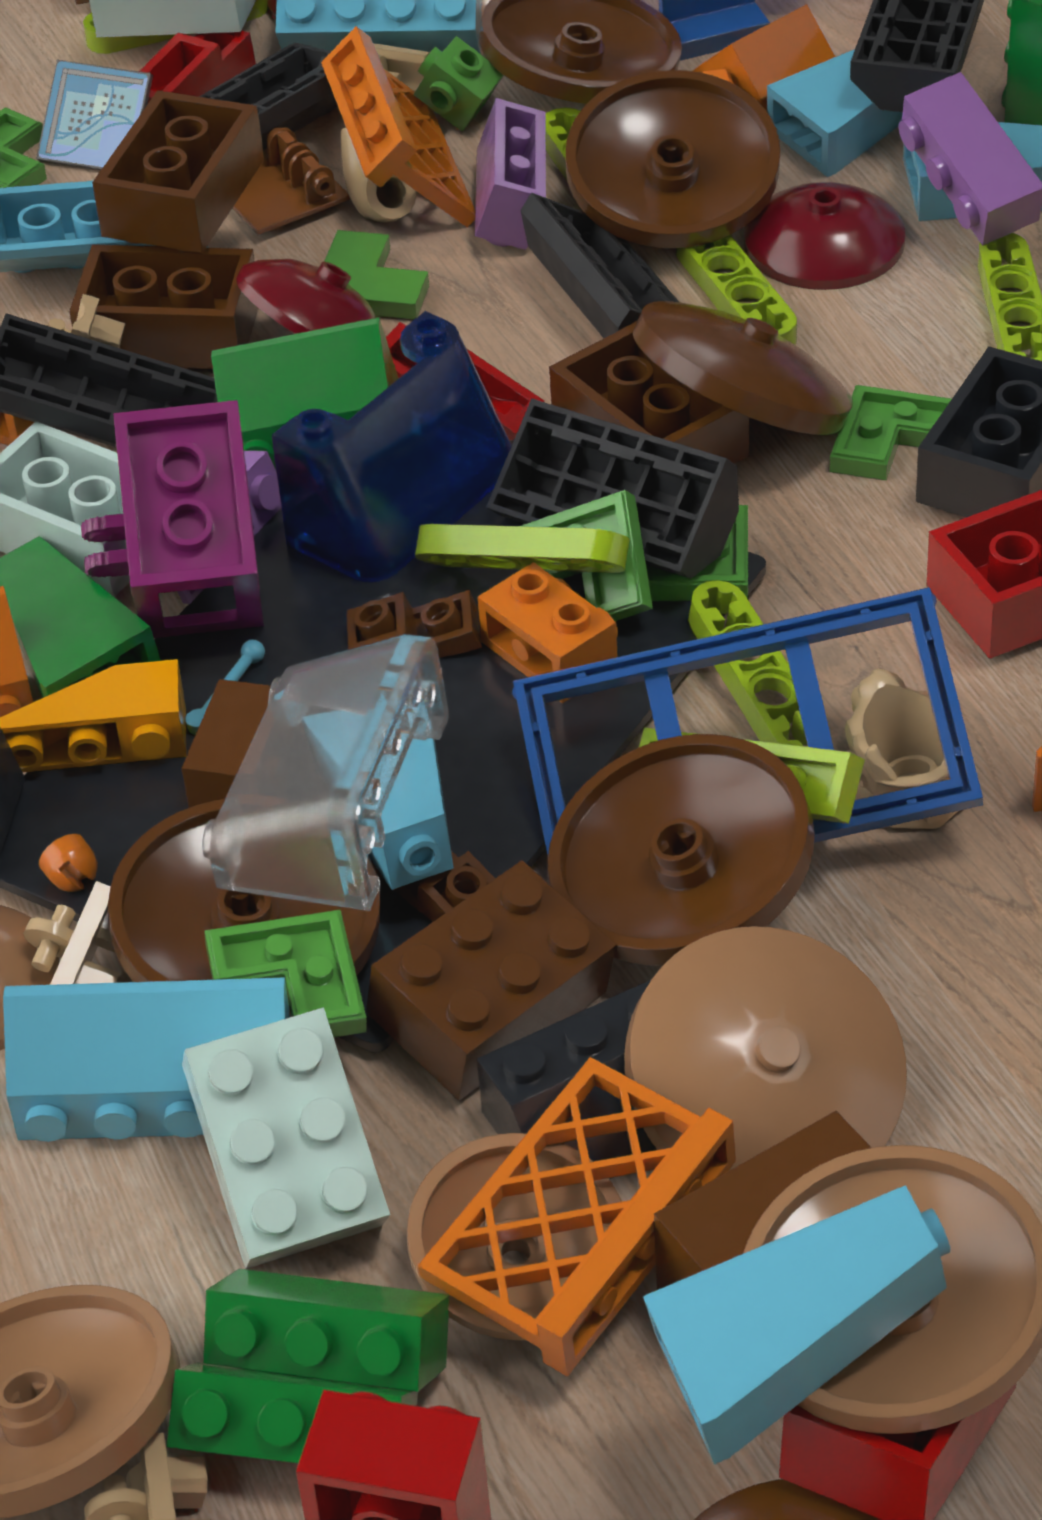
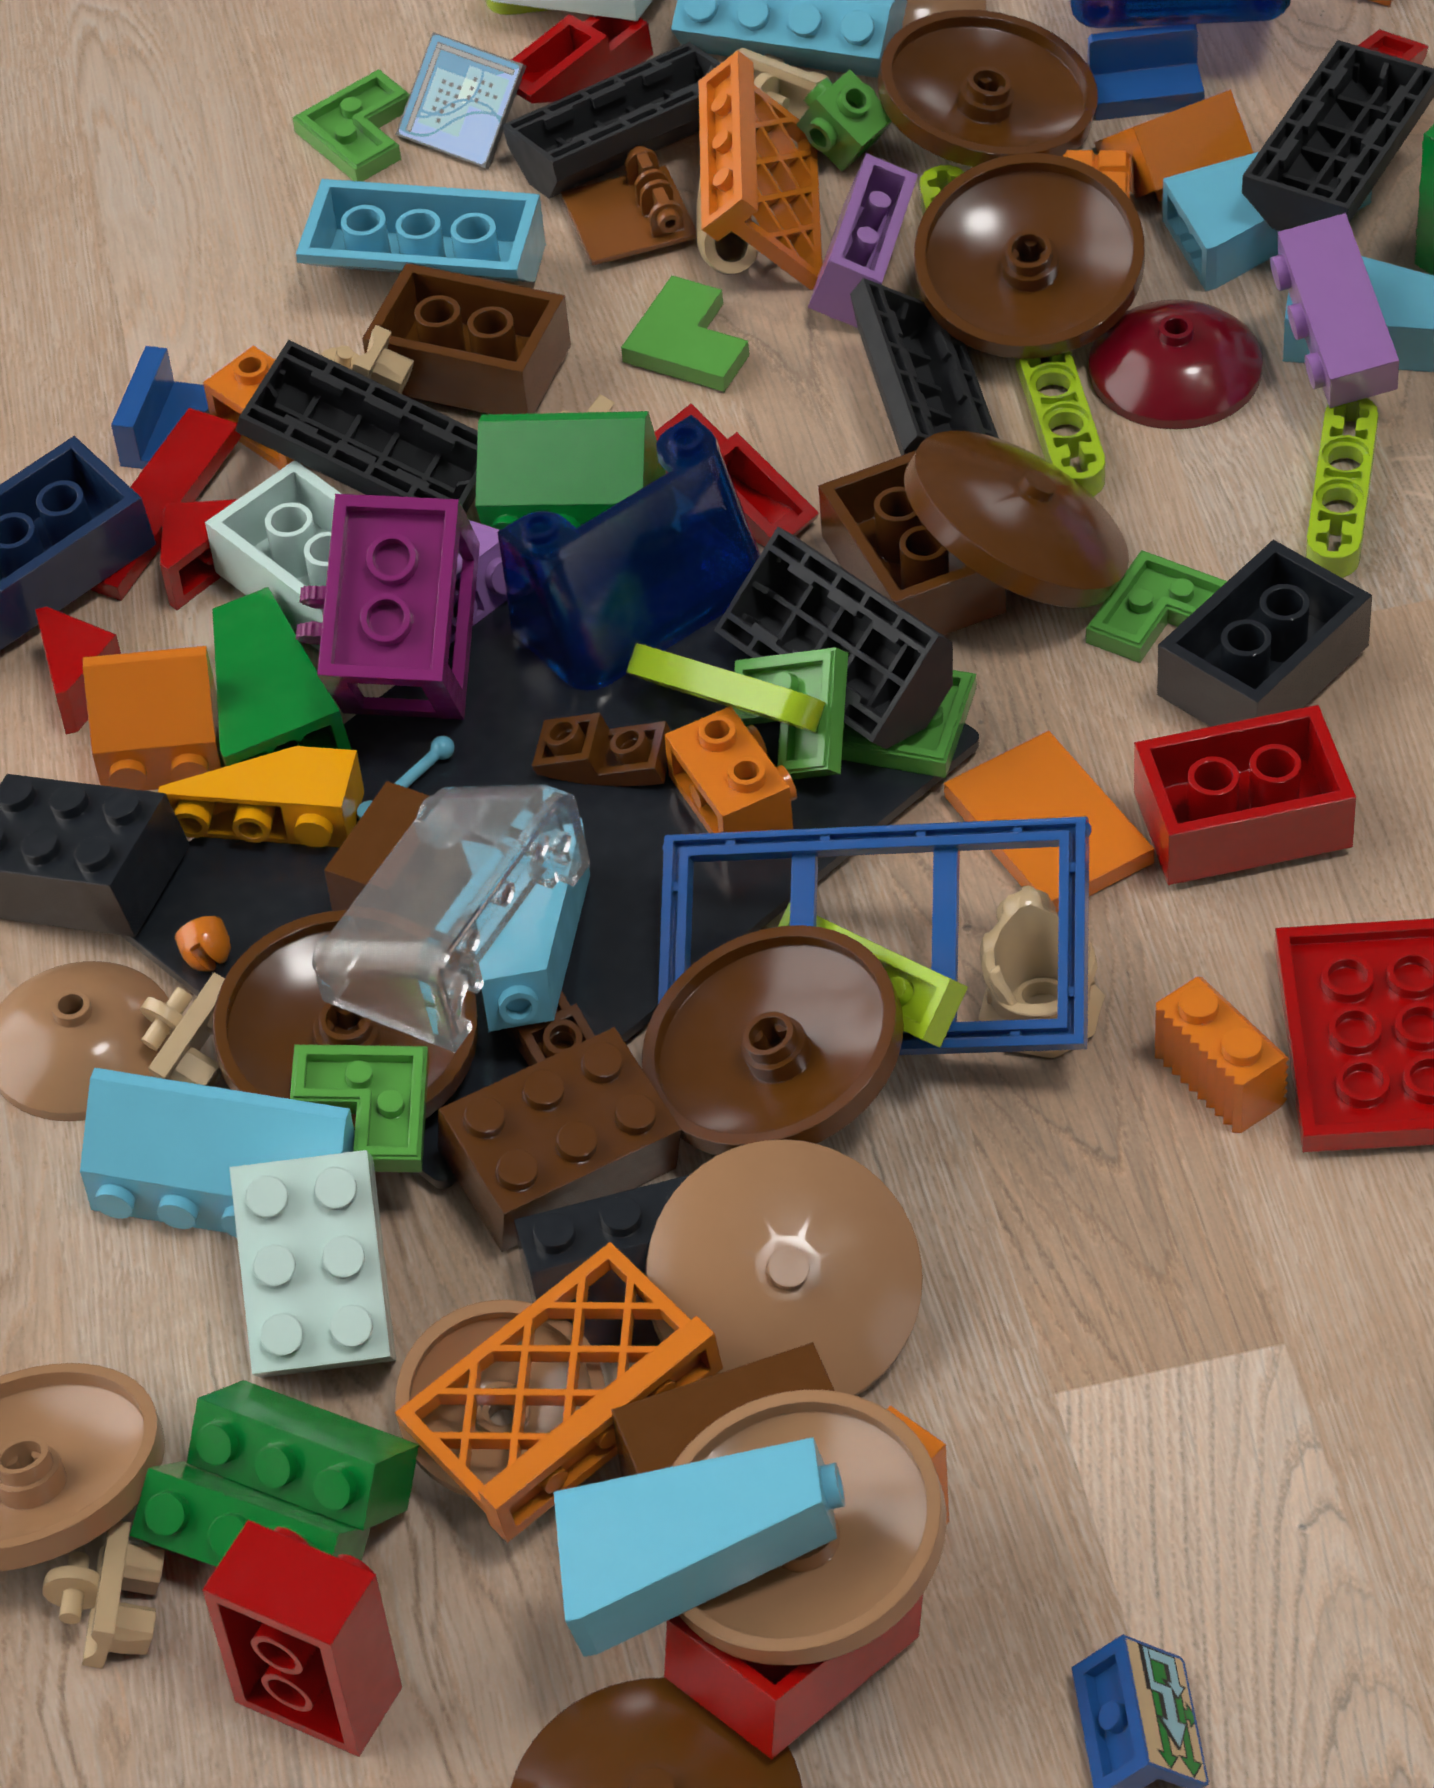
camera: 15 degrees right, 5 degrees up
(178, 171) = (506, 199): reddish brown brick -> none
(303, 294) = (604, 366): dark red dish -> none
(747, 678) = (916, 867): lime beam -> none
(839, 581) = (1047, 782): none -> orange tile

